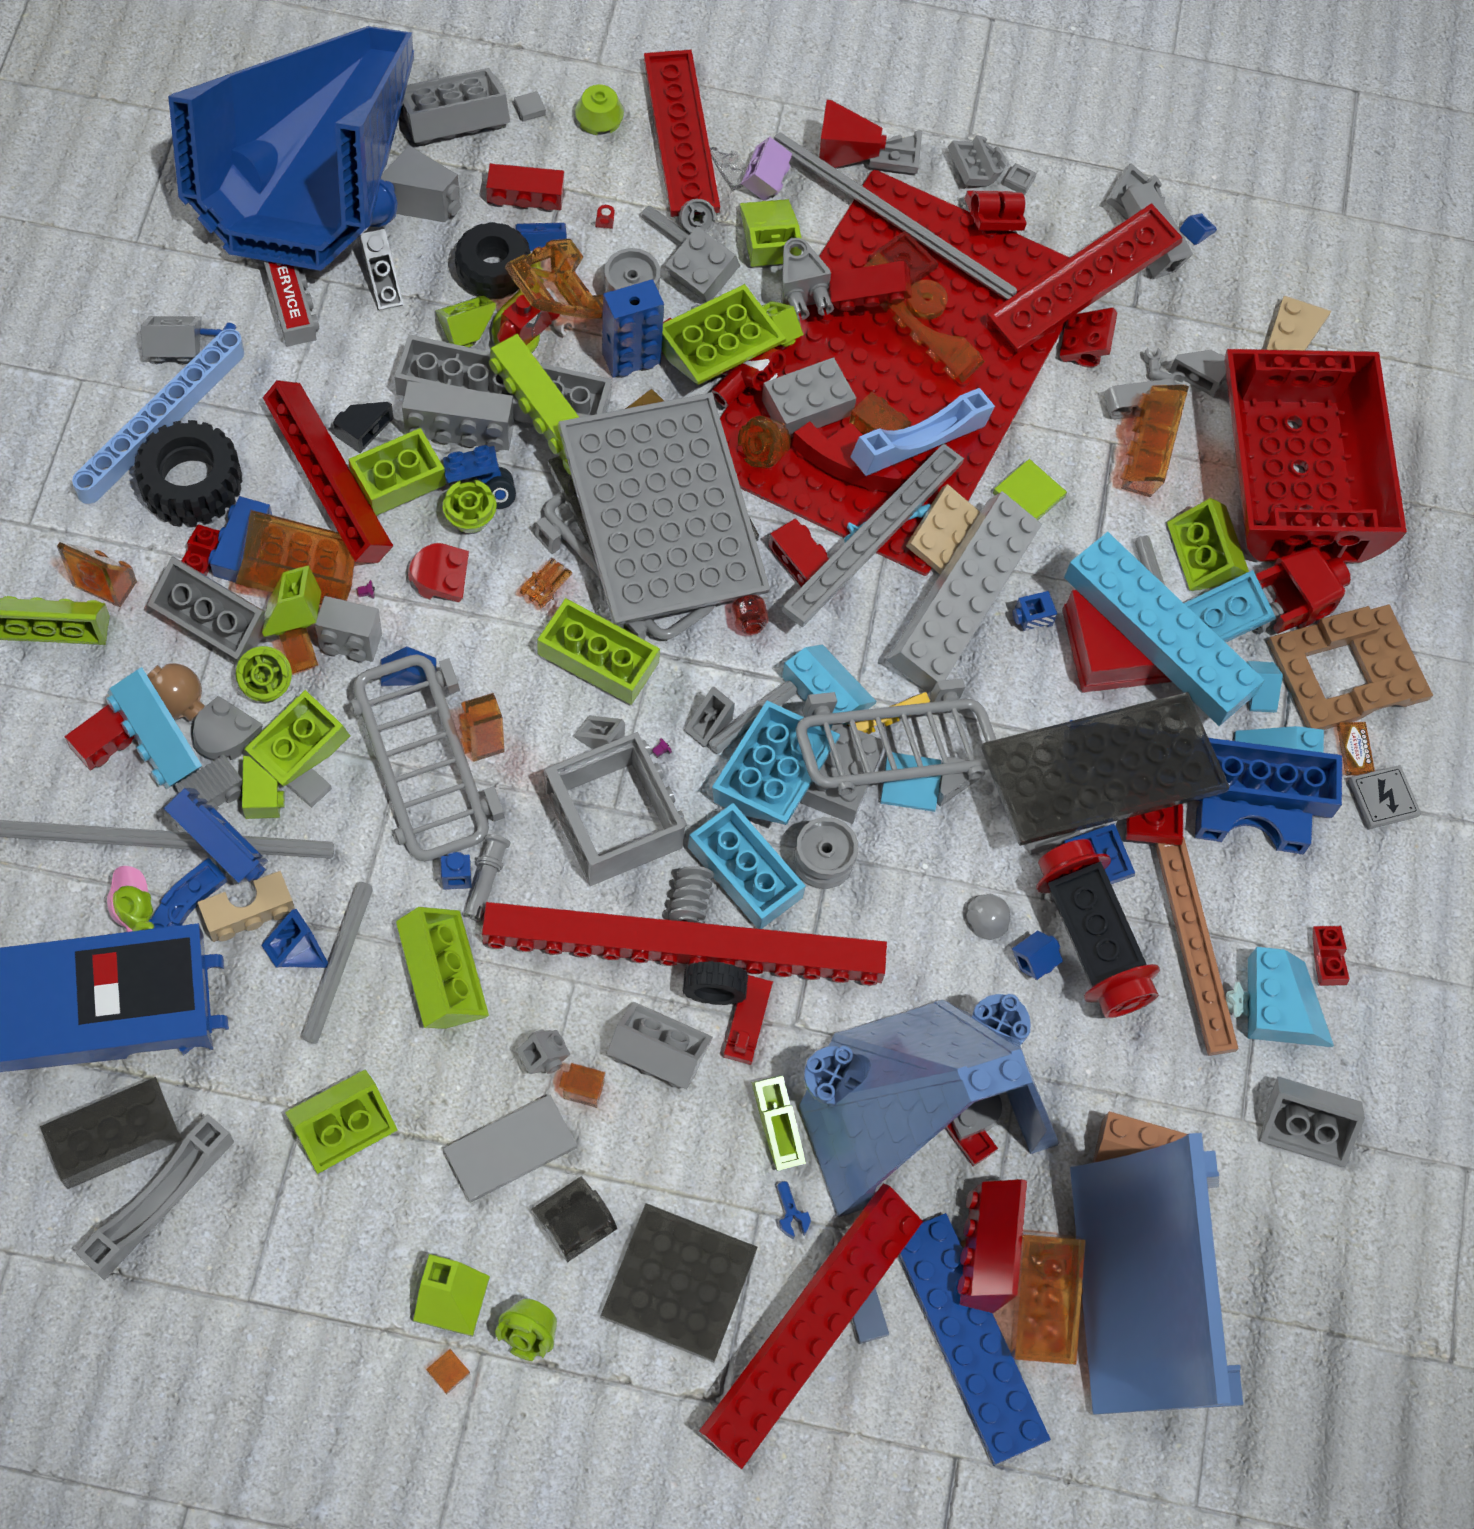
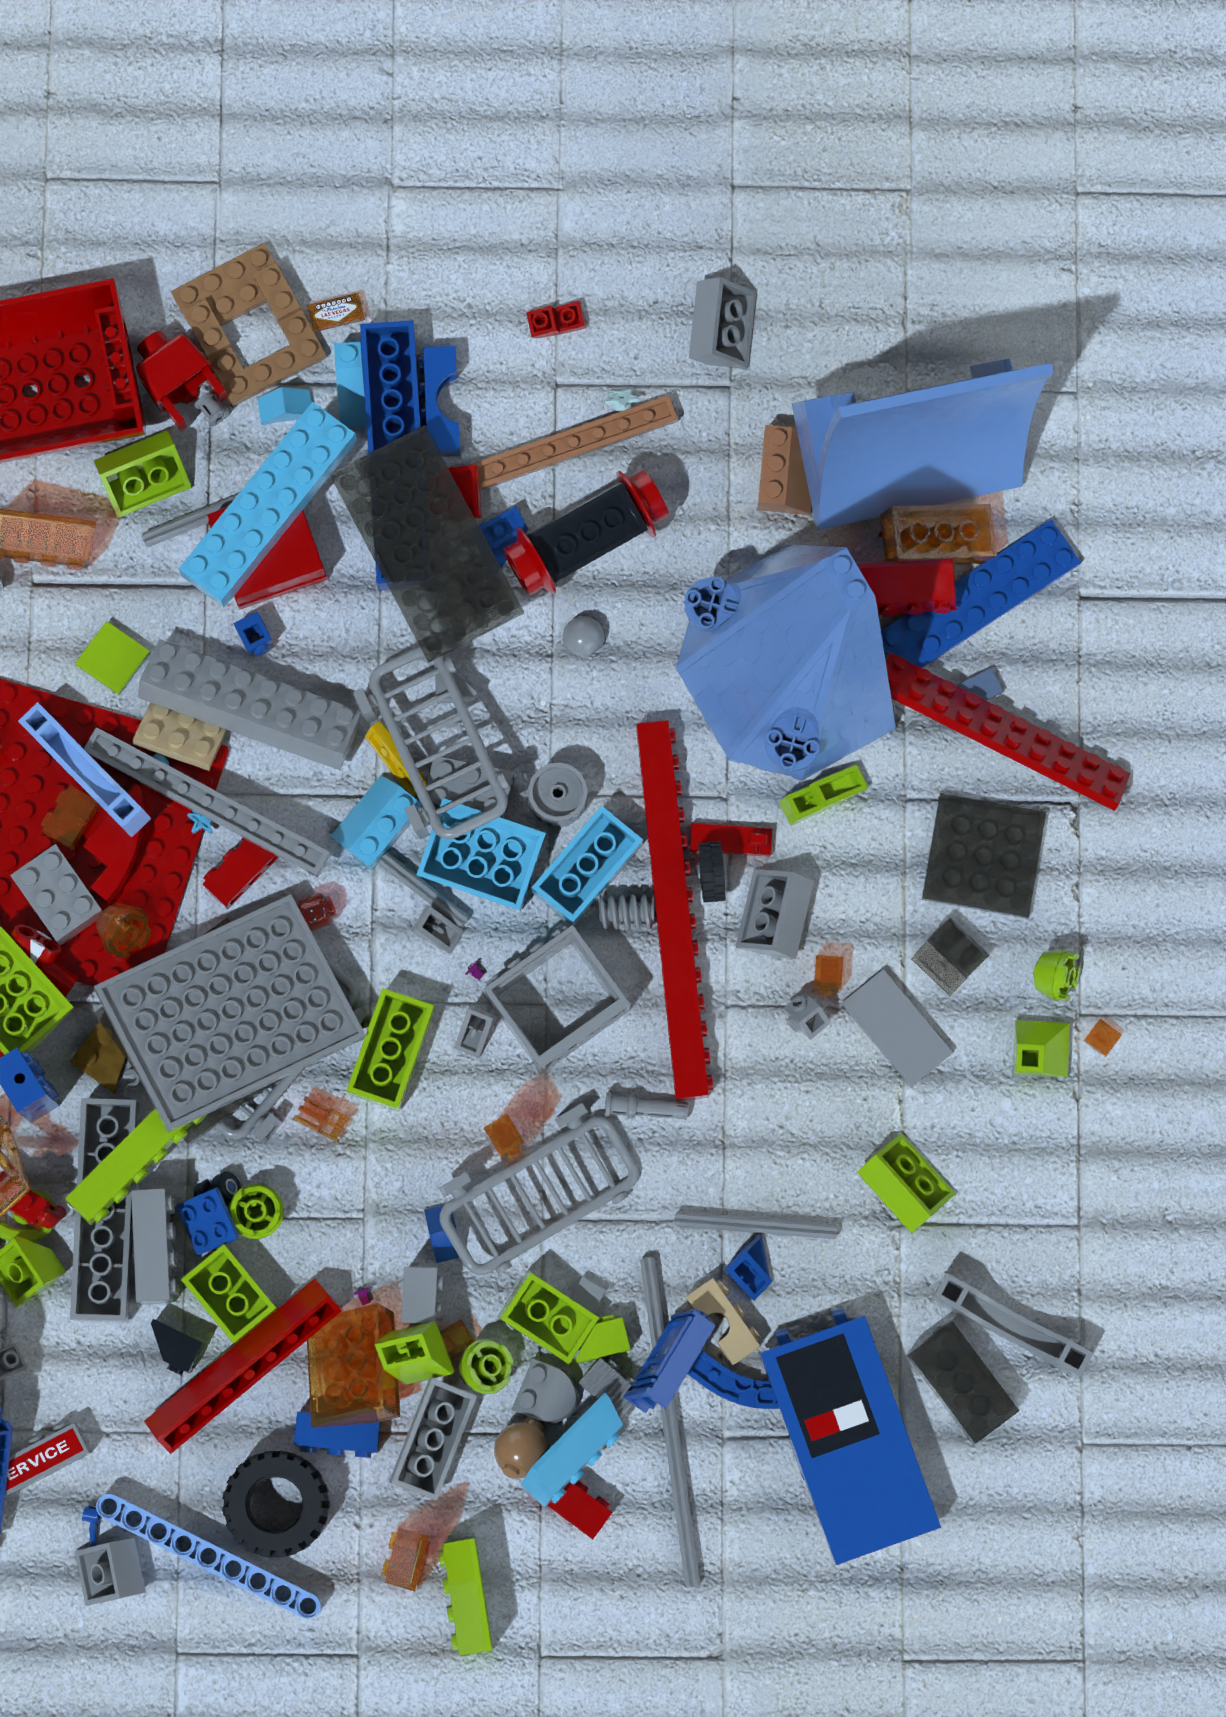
camera: 95 degrees left, 15 degrees up
(130, 900) = (747, 1427): lime hair -> none
(199, 548) = (358, 1471): red slope -> none
(439, 571) = (330, 1227): red slope -> none
(441, 967) = (744, 1127): lime slope -> none
(456, 866) = (645, 1136): blue brick -> none
(791, 1212) = (900, 770): blue bar -> none
(911, 793) = (456, 732): medium azure slope -> none
(1037, 954) = (616, 585): blue brick -> none
(1233, 607) = (218, 446): medium azure tile -> none
(1283, 1000) = (611, 358): medium azure wedge -> none
(1384, 797) = (382, 281): light grey tile -> none

